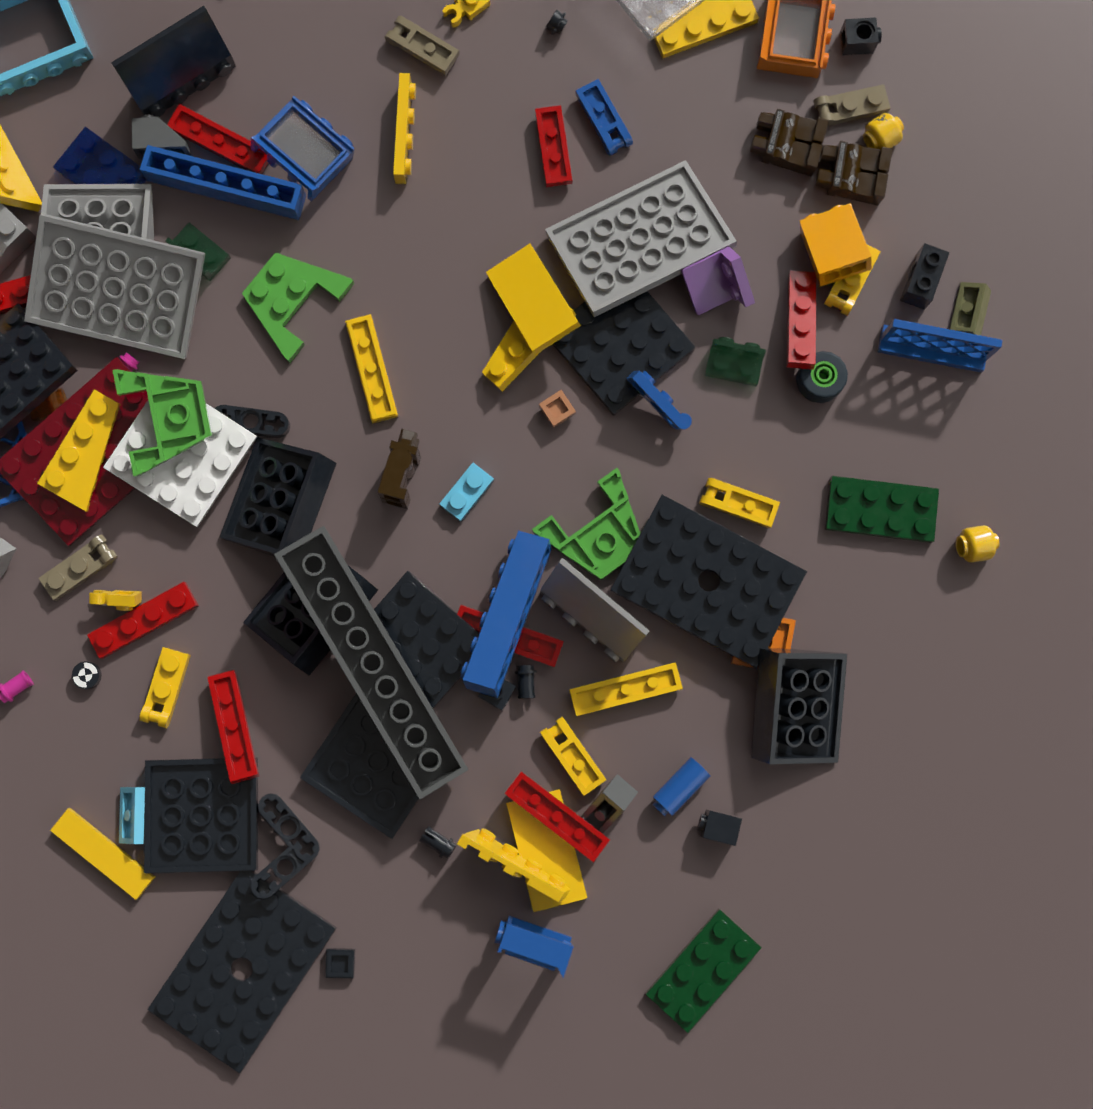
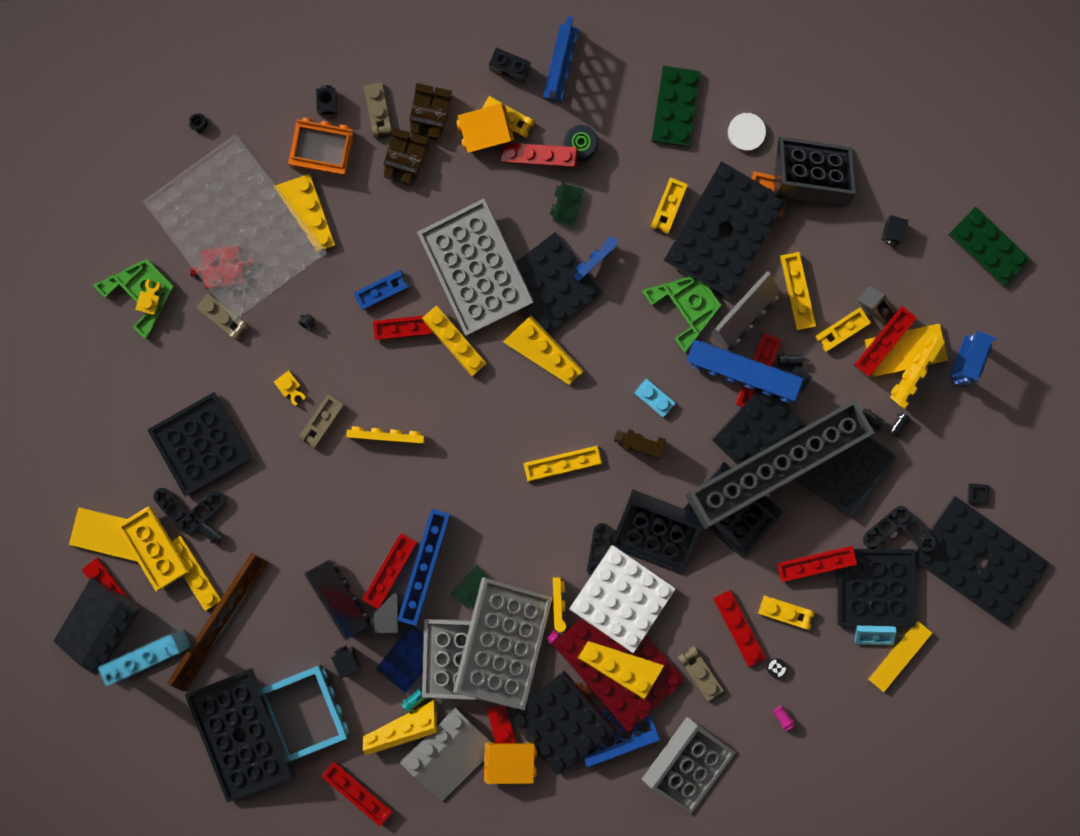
camera: 90 degrees left, 5 degrees up
(36, 172) = (413, 701): none -> teal pin
(92, 82) = (346, 661): none -> black brick
(121, 599) = (724, 642): yellow plate -> none
(174, 366) = (559, 605): none -> yellow plate
(176, 412) = (599, 598): bright green wing -> none
(282, 290) = (504, 528): bright green wing -> none
(304, 146) = (399, 508): window -> none
(444, 802) = (873, 419): none -> black pin
(533, 299) = (519, 345): yellow tile -> none
(537, 213) = (453, 340): none -> yellow plate
(557, 408) = (597, 331): nougat plate -> none
(680, 787) = (866, 256): blue brick -> none
(717, 281) = (509, 214): medium lavender bracket -> none
(851, 610) = (746, 132): none -> white tile
(883, 132) = (400, 88): yellow head -> none
(970, 308) = (533, 34): olive slope -> none
(977, 543) = (703, 41): yellow head -> none

